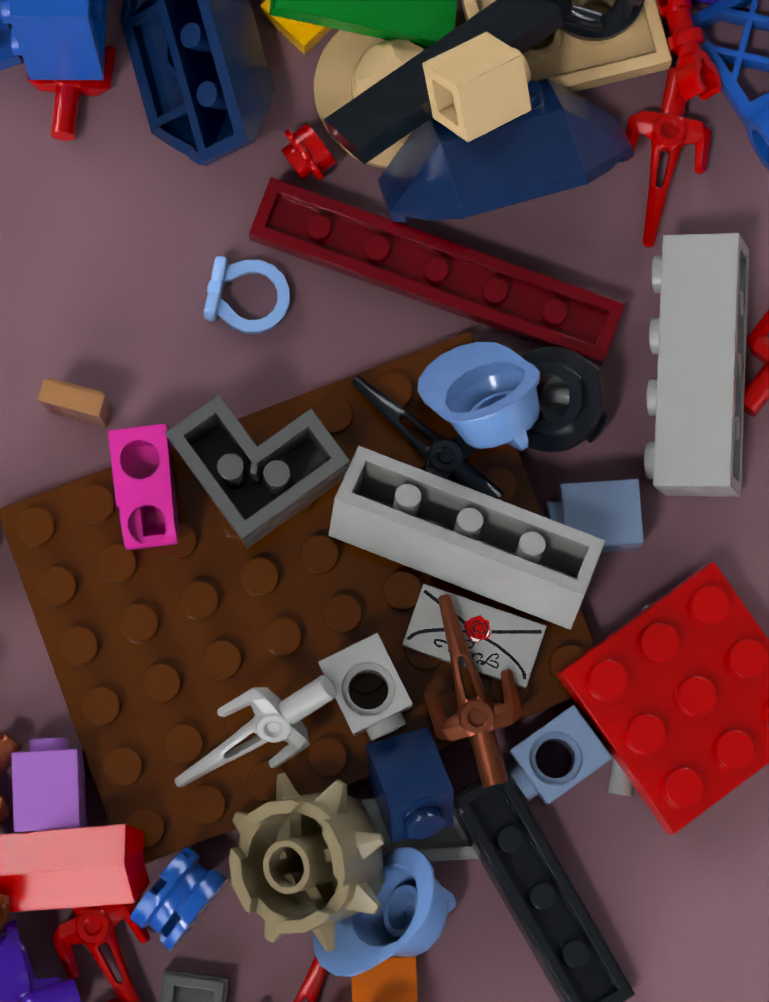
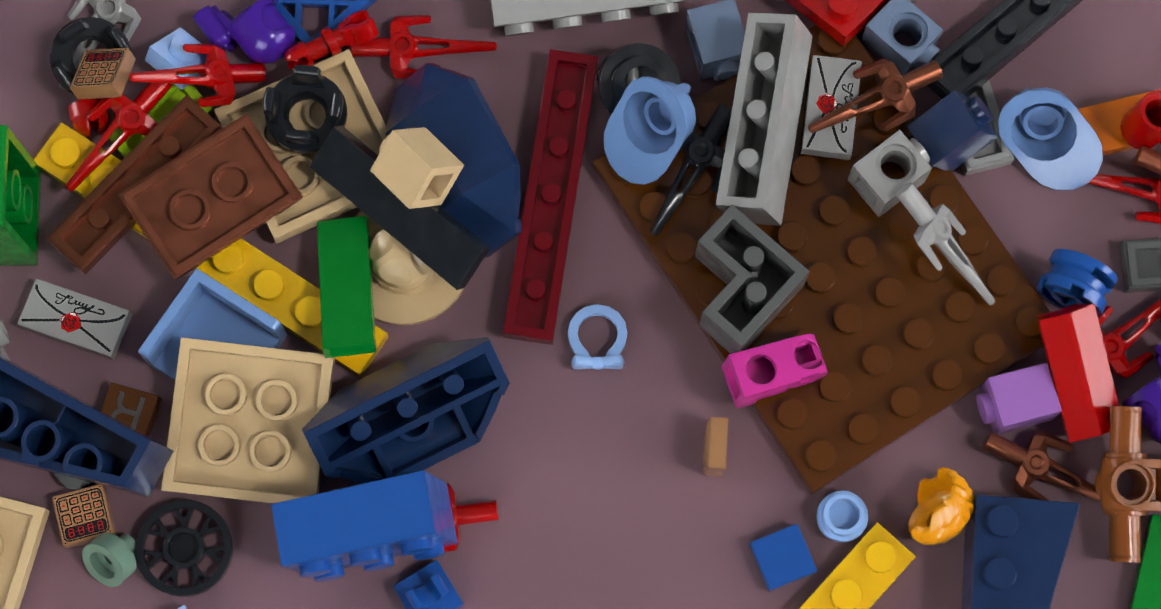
camera: 105 degrees left, 5 degrees down
(307, 153) = (474, 312): red plate -> none
(307, 861) = (1029, 190): dark tan brick -> none

